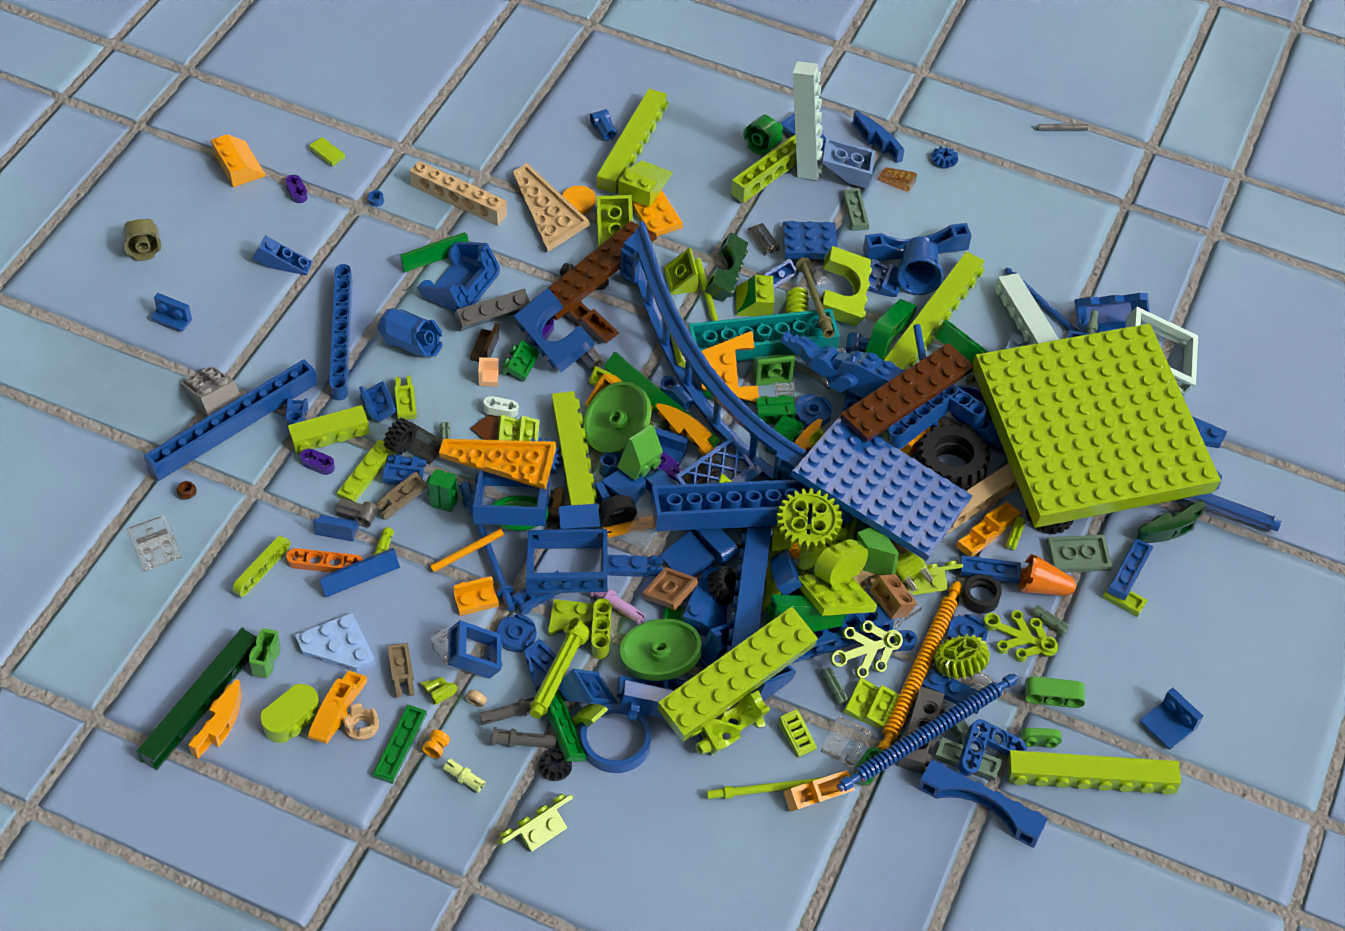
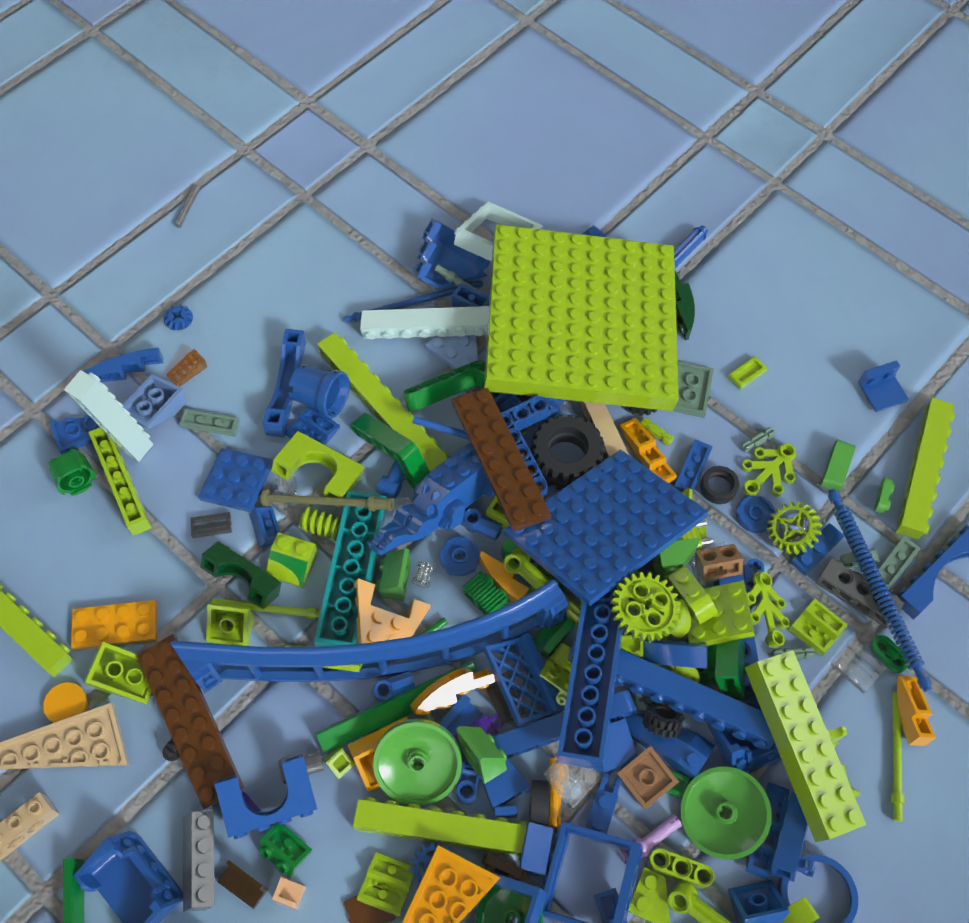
camera: 70 degrees left, 10 degrees up
(500, 406) = (338, 891): light aqua beam -> none
(591, 322) = (261, 746): reddish brown slope -> none
(643, 182) = (81, 621): lime slope -> none
(772, 408) = (447, 593): green brick -> none
(791, 721) = (827, 715): lime slope -> none
(920, 666) = (709, 505): light orange hose -> none
(983, 740) = (878, 541): blue beam -> none
(1044, 578) = (719, 428): orange cone -> none
(1130, 569) = (721, 356): blue tile -> none

